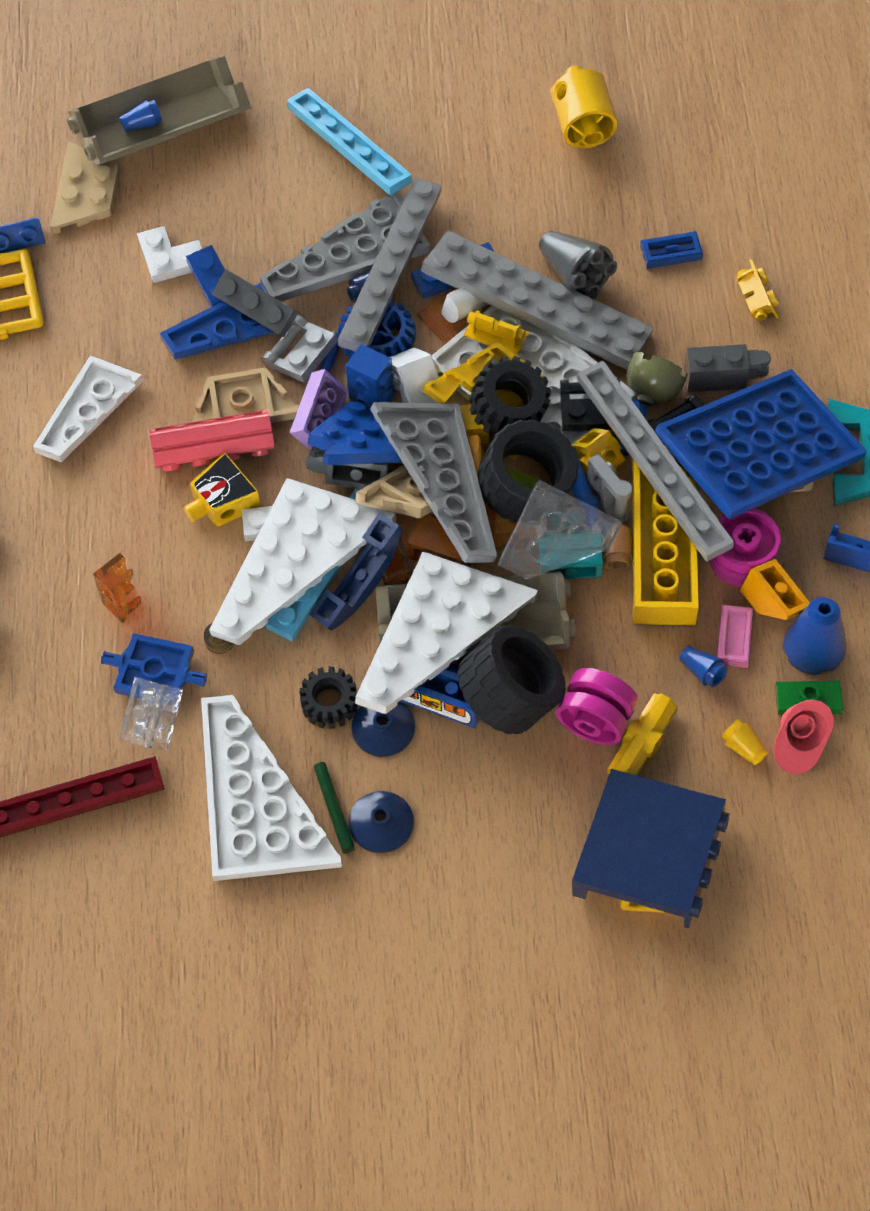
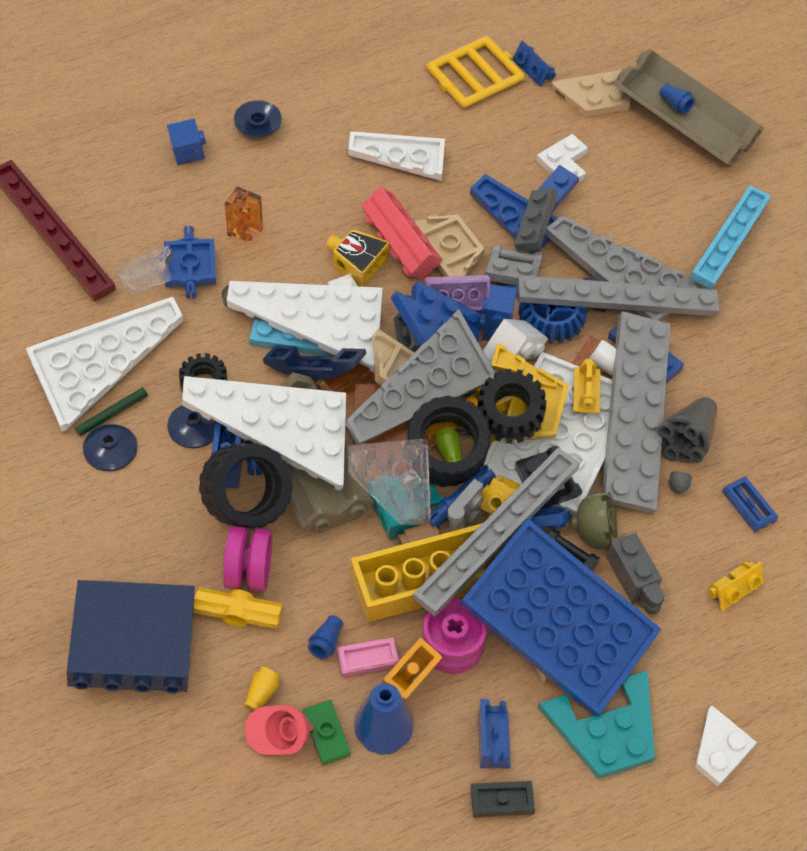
camera: 65 degrees right, 5 degrees down
(629, 297) = (680, 481): none -> dark grey hinge

